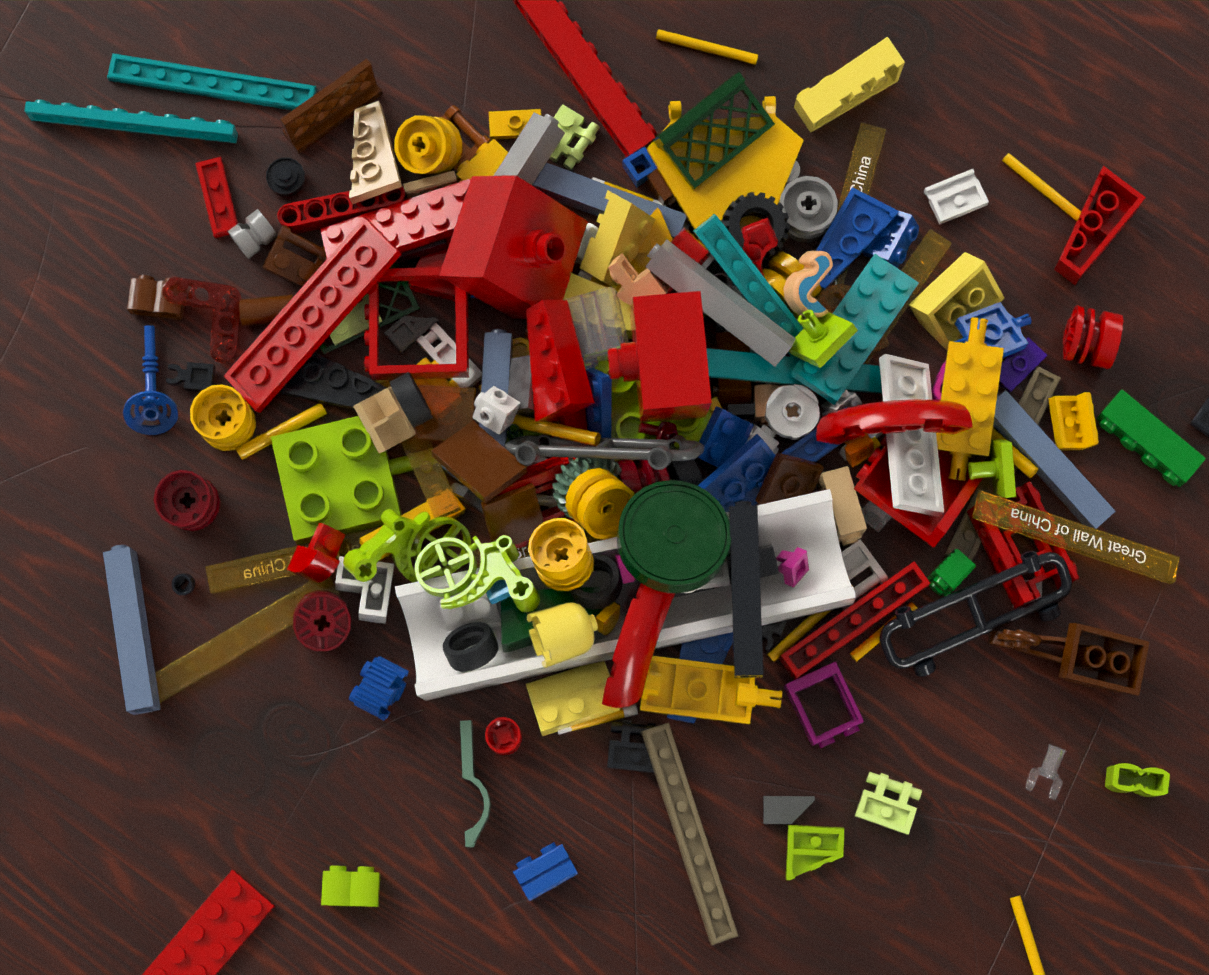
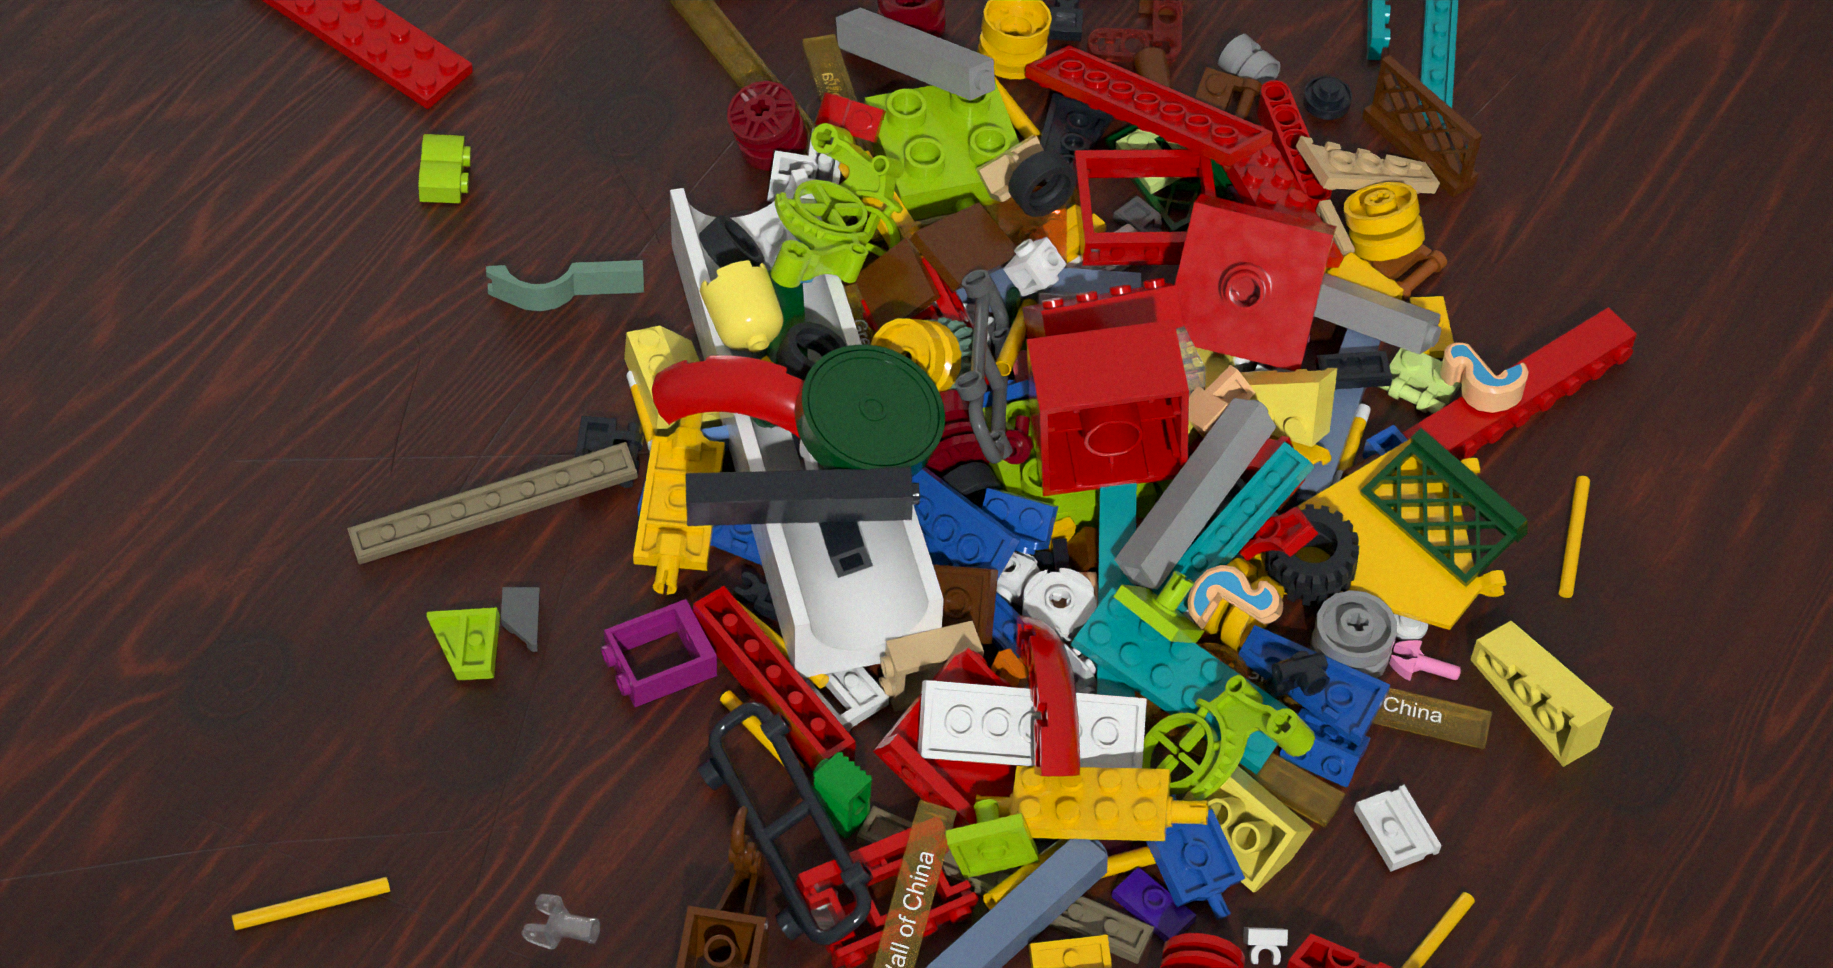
camera: 85 degrees right, 25 degrees down
(179, 580) = (812, 14): black hinge -> none
(217, 196) = (1300, 38): red tile -> none
(255, 496) = (916, 53): none -> light grey brick
(379, 687) = (686, 170): blue brick -> none
(503, 736) = (622, 307): red wheel -> none
(544, 872) = (451, 355): blue brick -> none
(561, 554) = (842, 299): yellow wheel -> none
(579, 182) = (1358, 369): none -> black plate
(592, 94) = (1479, 384): none -> light nougat animal
(793, 565) = (840, 581): dark pink tile -> none
(818, 162) = (1418, 662): none -> bright pink bar
(852, 244) = (1299, 671): none -> black plate
(886, 811) = (513, 725): yellowish green plate -> none
(908, 290) = (1239, 715): none -> lime piece
(1047, 292) = (1265, 939): none -> white tile

